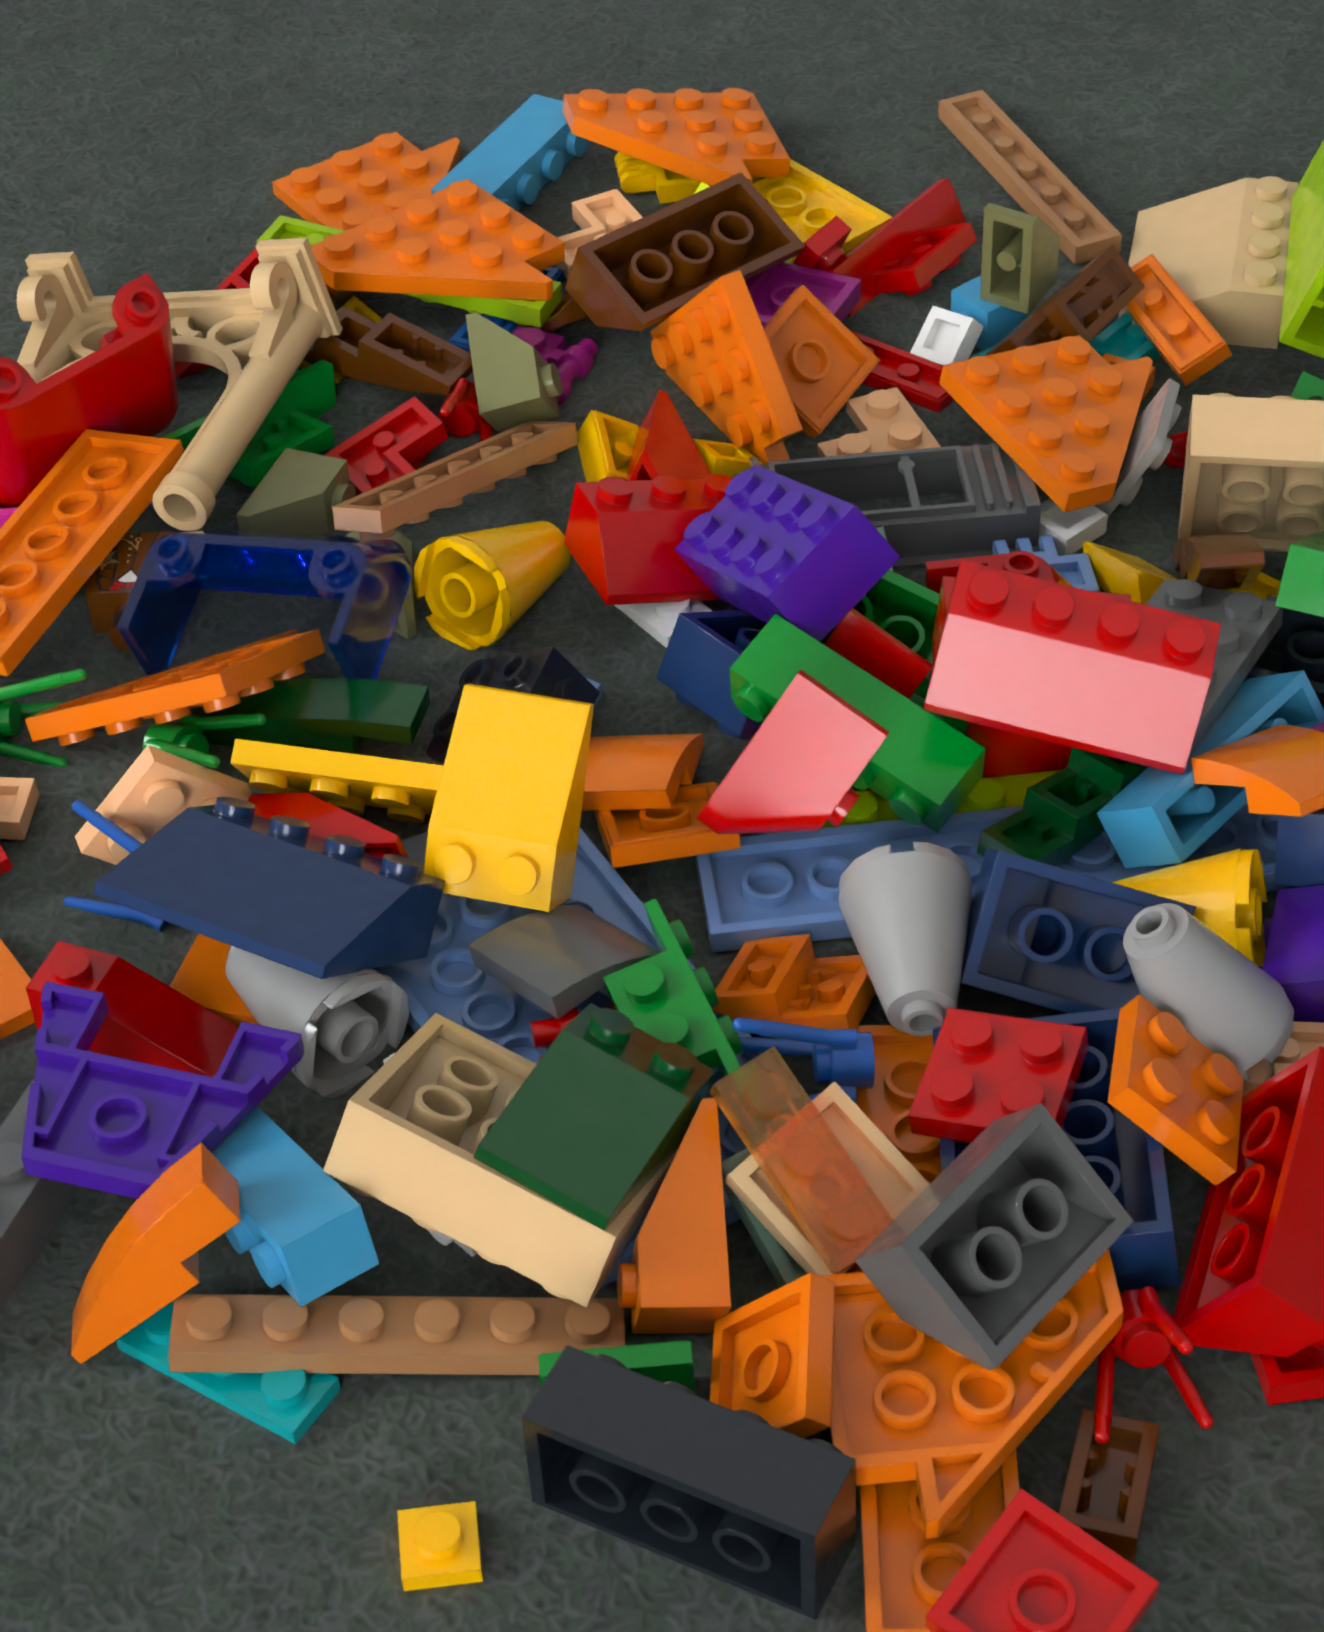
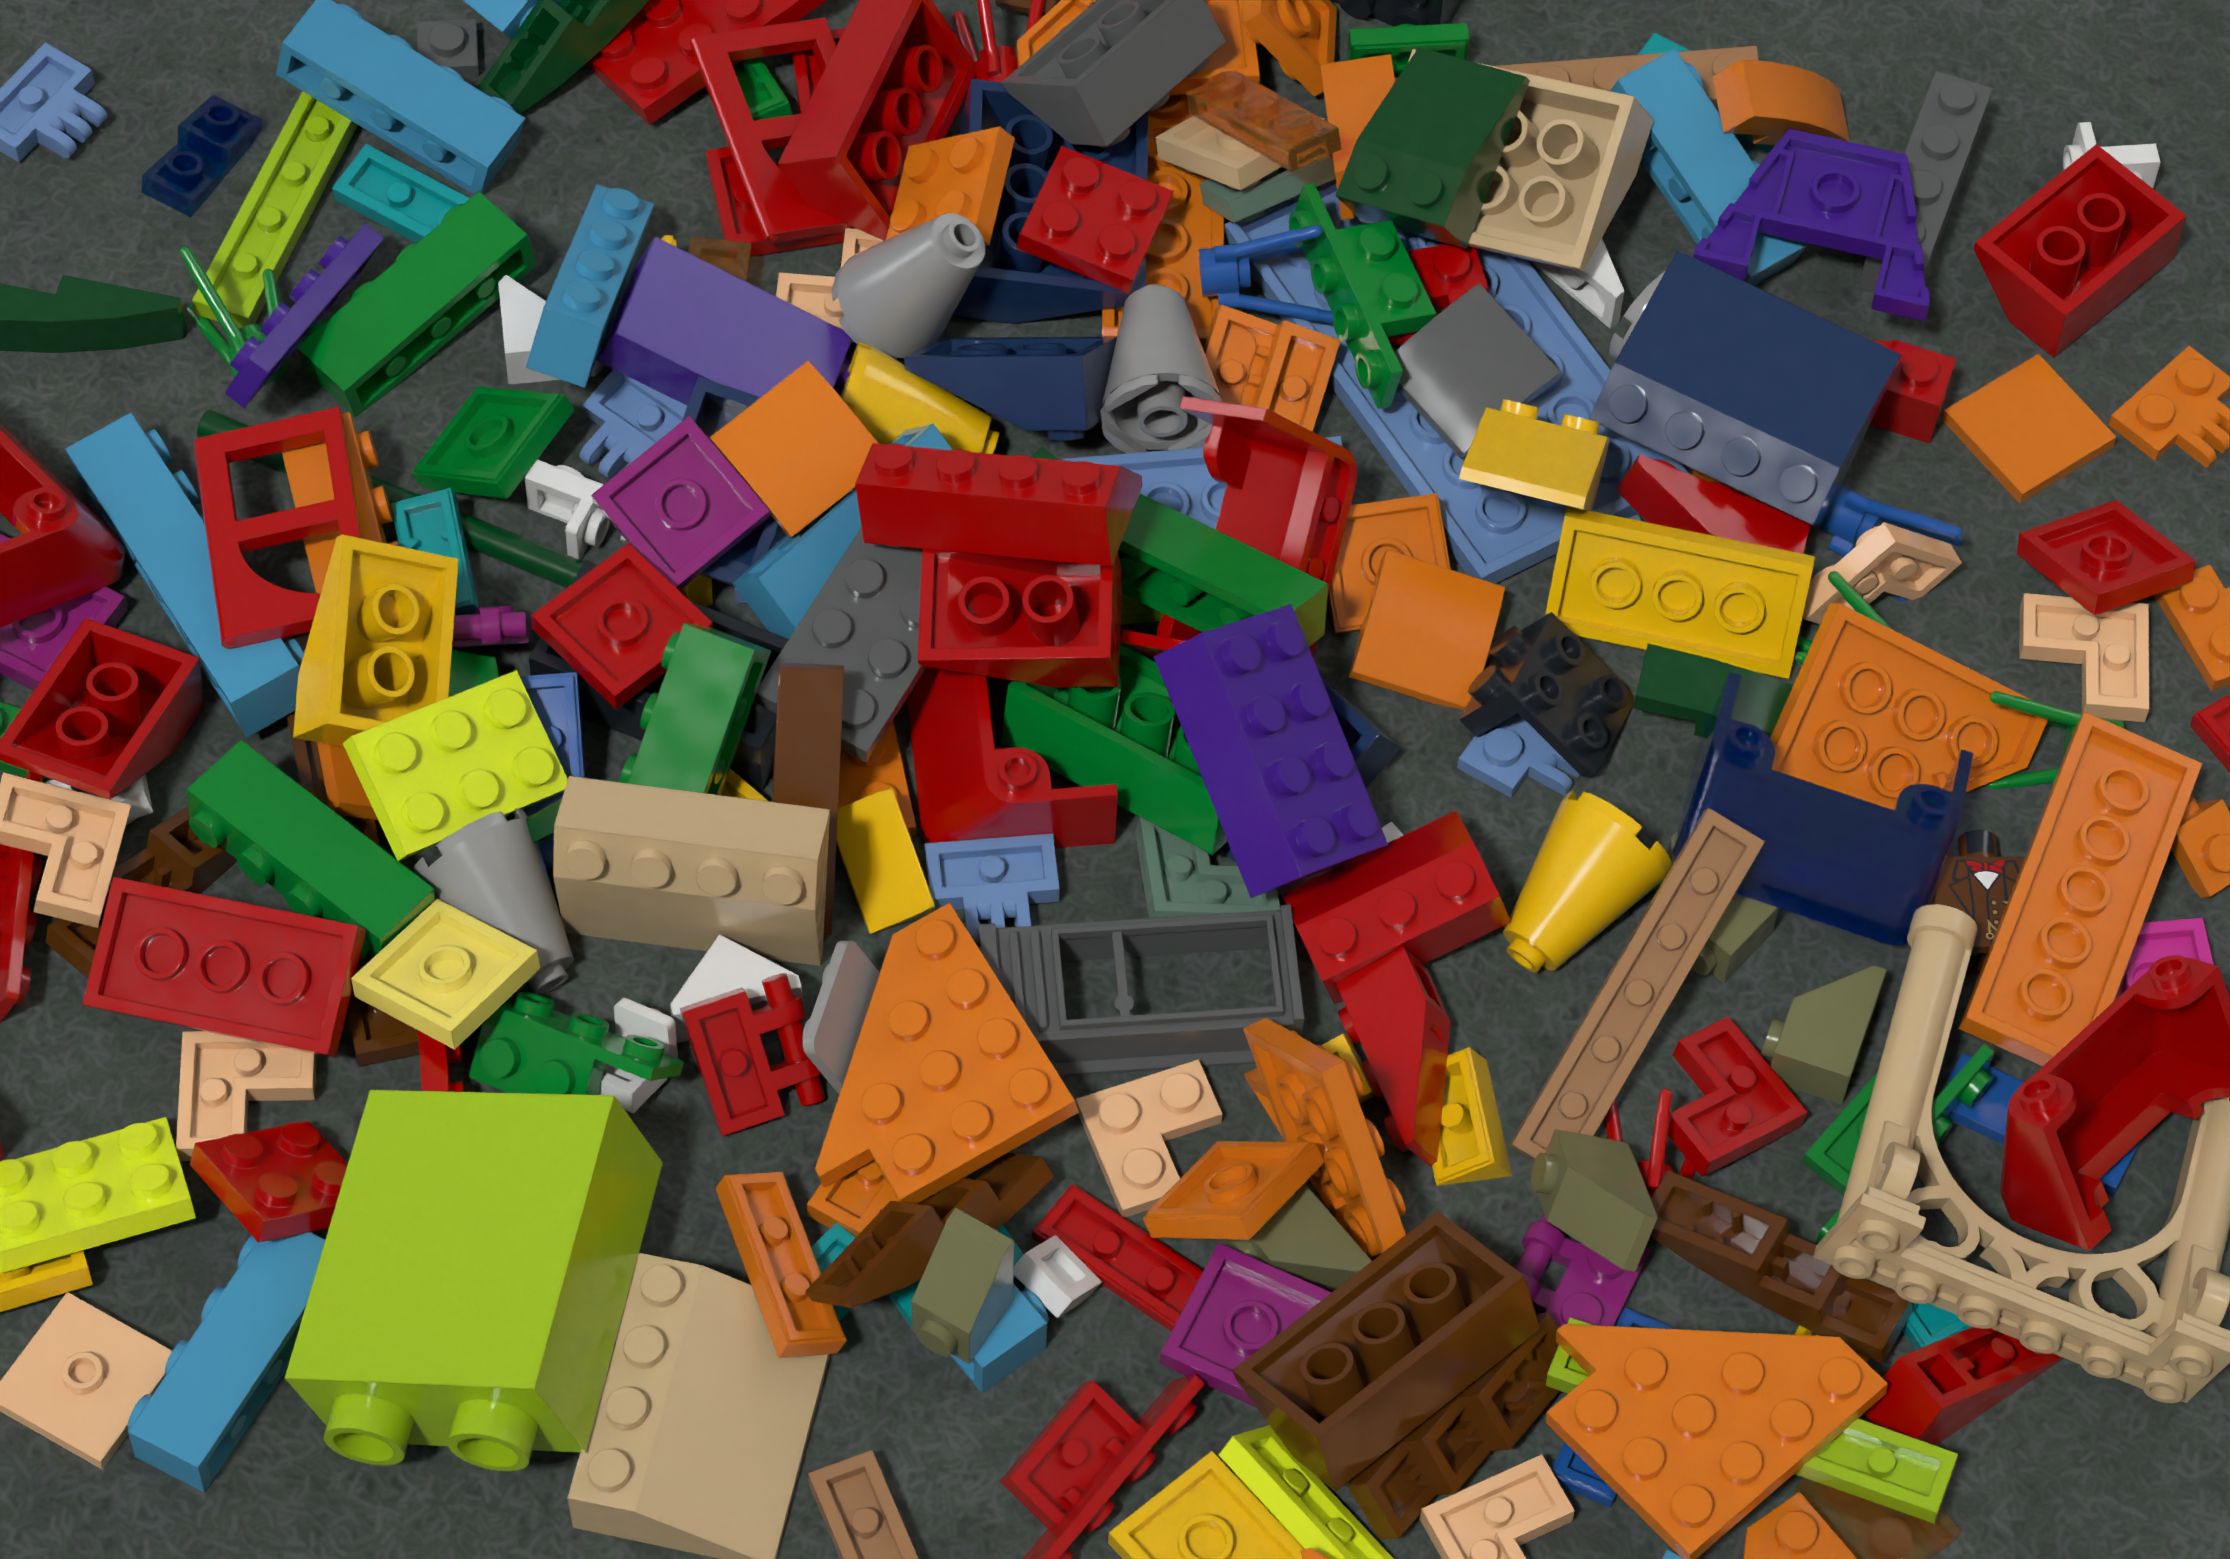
camera: 175 degrees right, 15 degrees up
(824, 246) = (1211, 1413): red plate -> none

